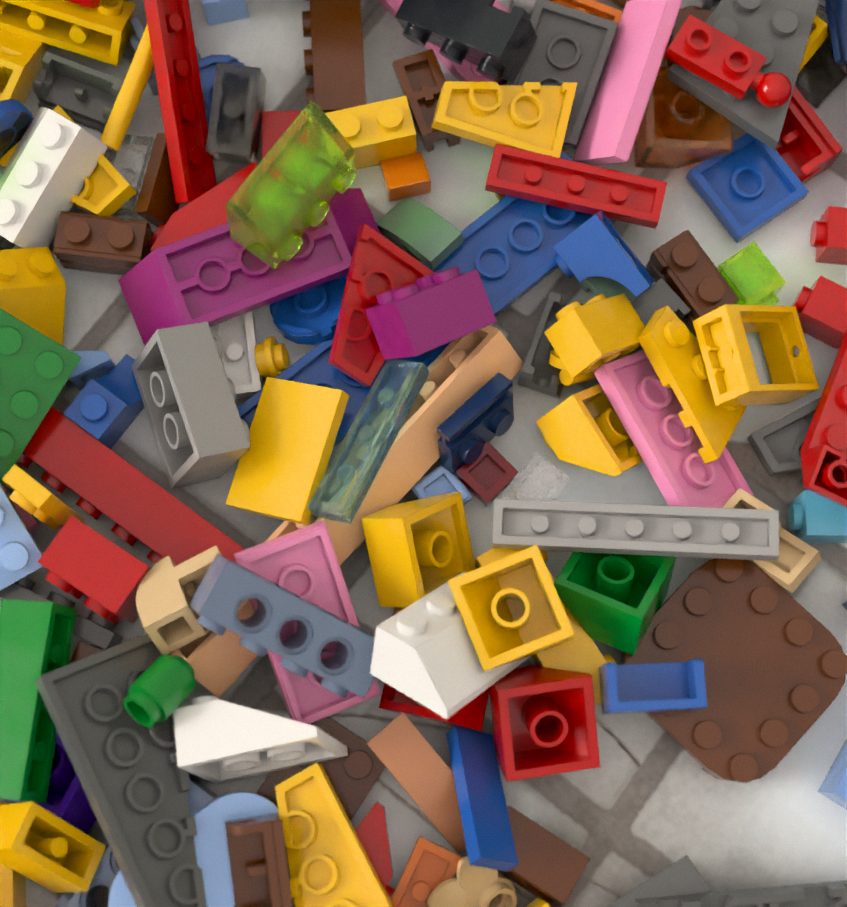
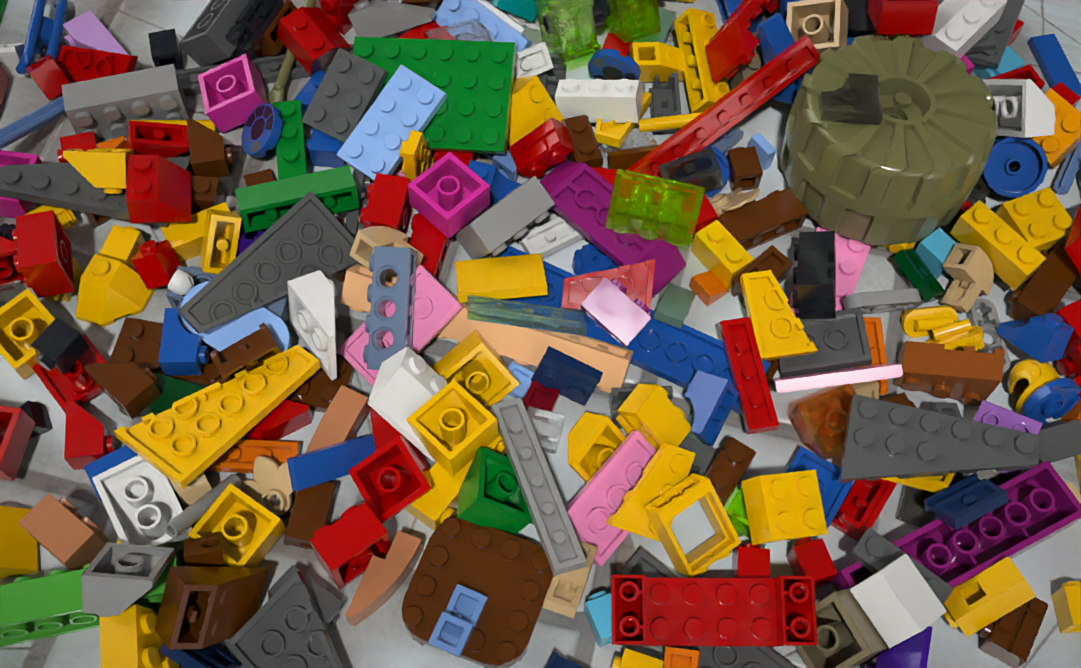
camera: 65 degrees right, 15 degrees down
(89, 300) = (542, 148): none -> red brick
(122, 467) = (449, 194): none -> dark pink brick
(160, 690) = (328, 257): green brick -> none
(242, 37) = (744, 168): none -> reddish brown brick
(271, 357) = (556, 255): yellow plate -> none
(293, 78) = (732, 200): none -> tan plate
(615, 817) = (349, 544): none -> red brick
(652, 687) = (439, 531): blue panel -> none
(665, 784) = (384, 577): none -> nougat slope
(727, 63) = (874, 422): red plate -> none
(779, 710) = (458, 621): none -> medium blue slope
(782, 231) = (784, 507): none -> yellow brick

